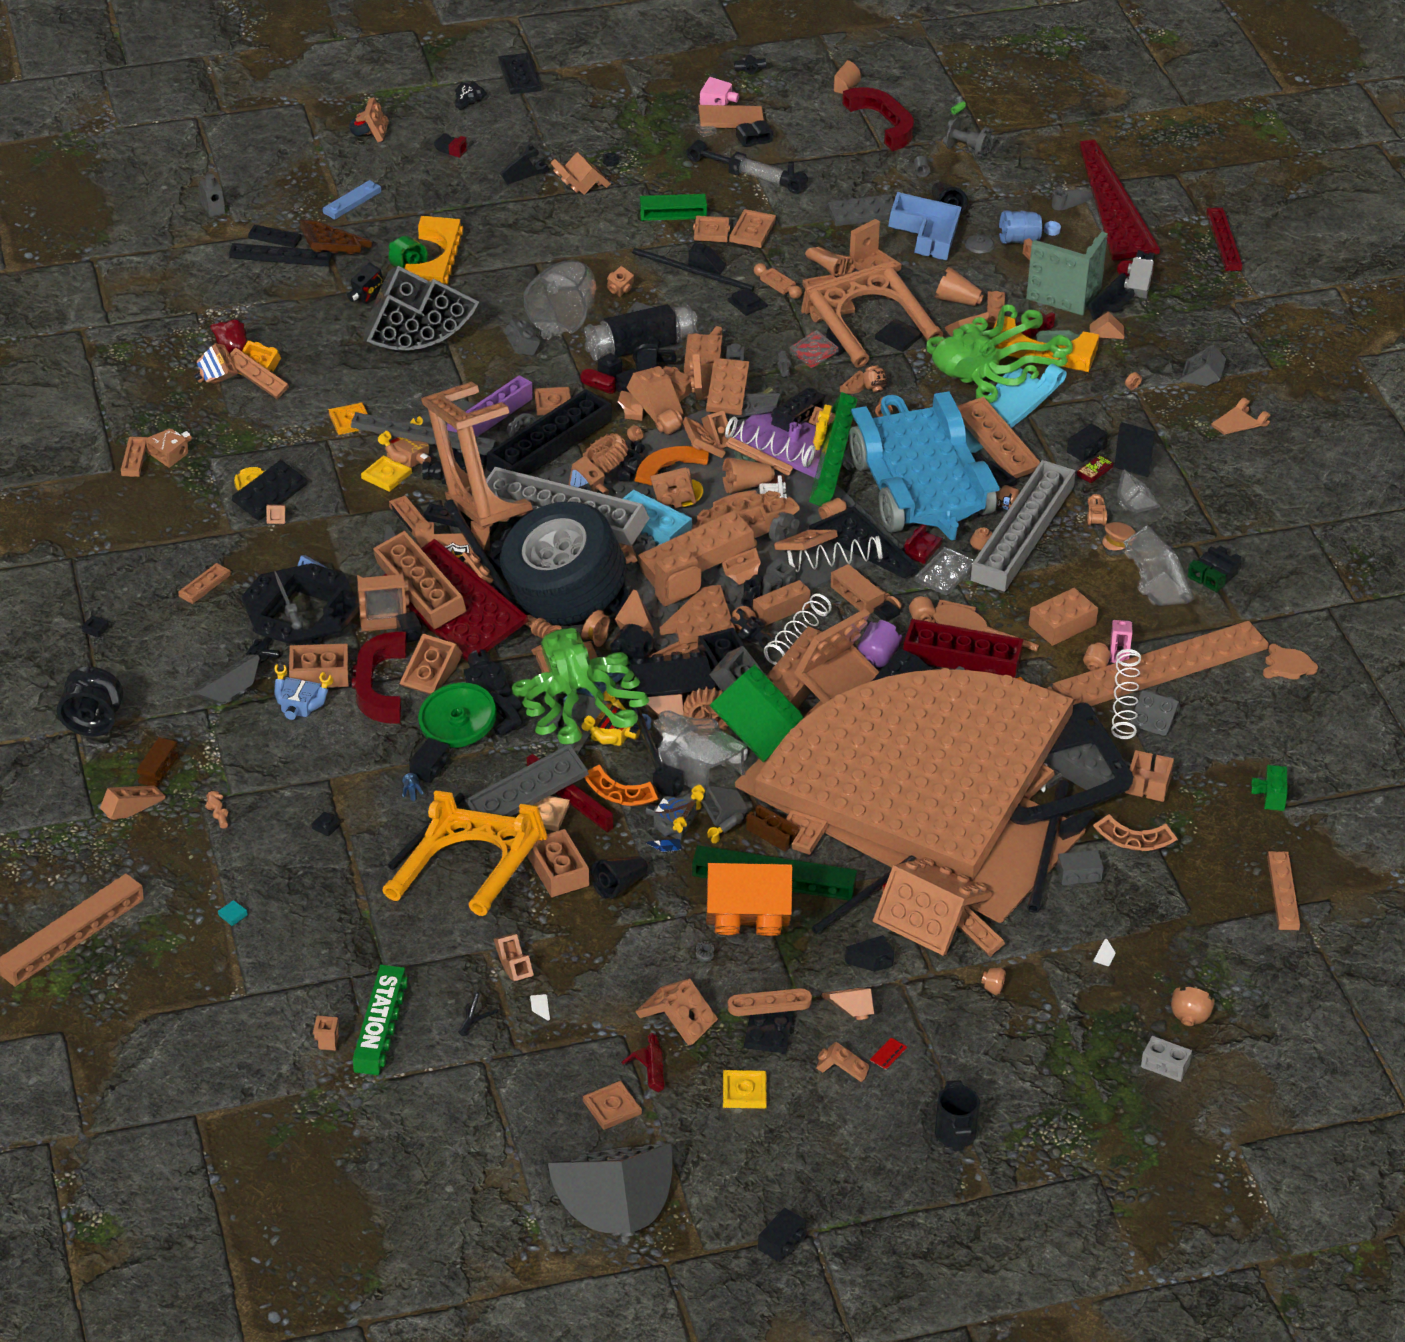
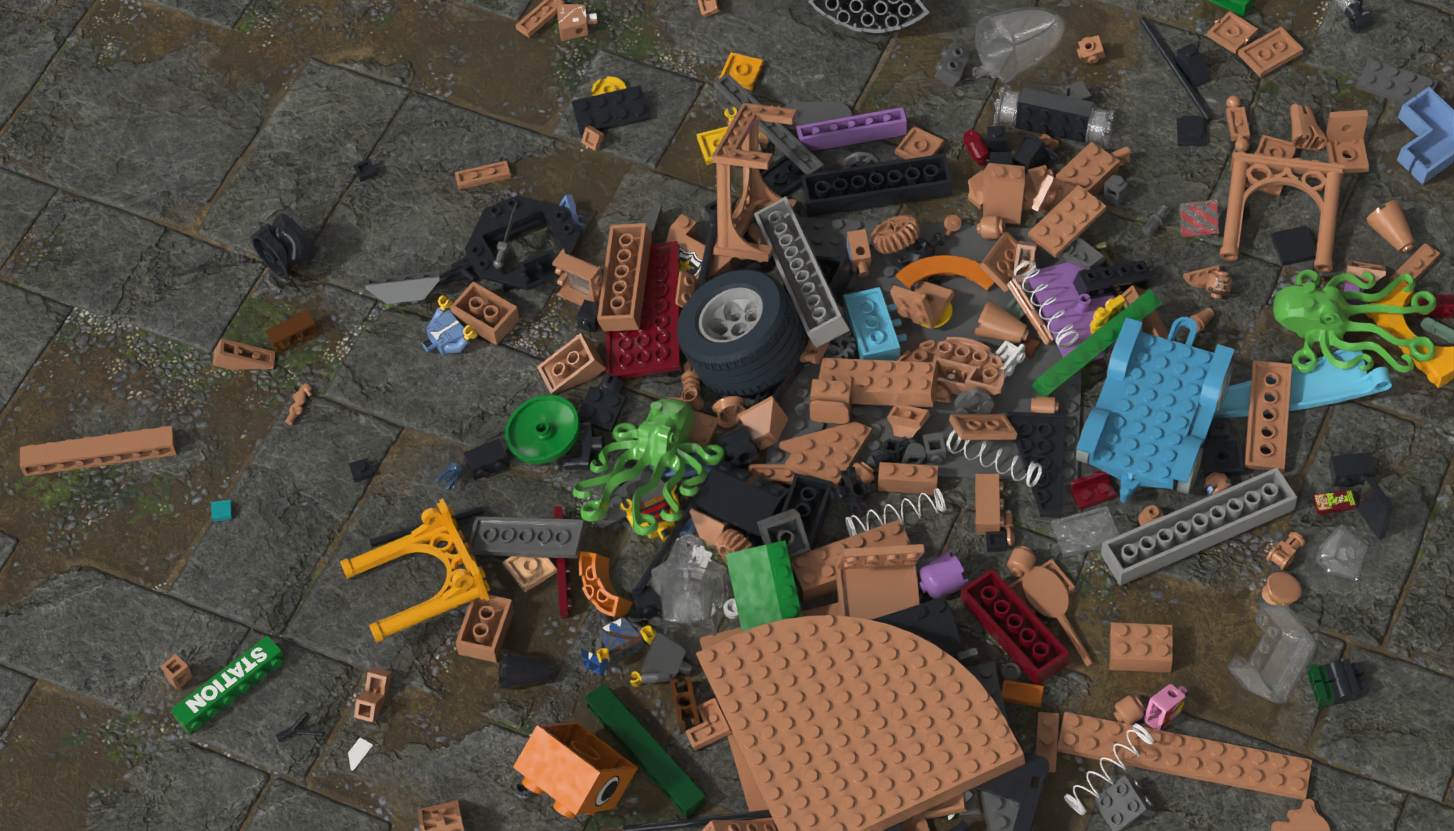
camera: 45 degrees right, 15 degrees up
(377, 649) = (515, 341): dark red arch -> none
(406, 513) = (695, 198): nougat plate -> none

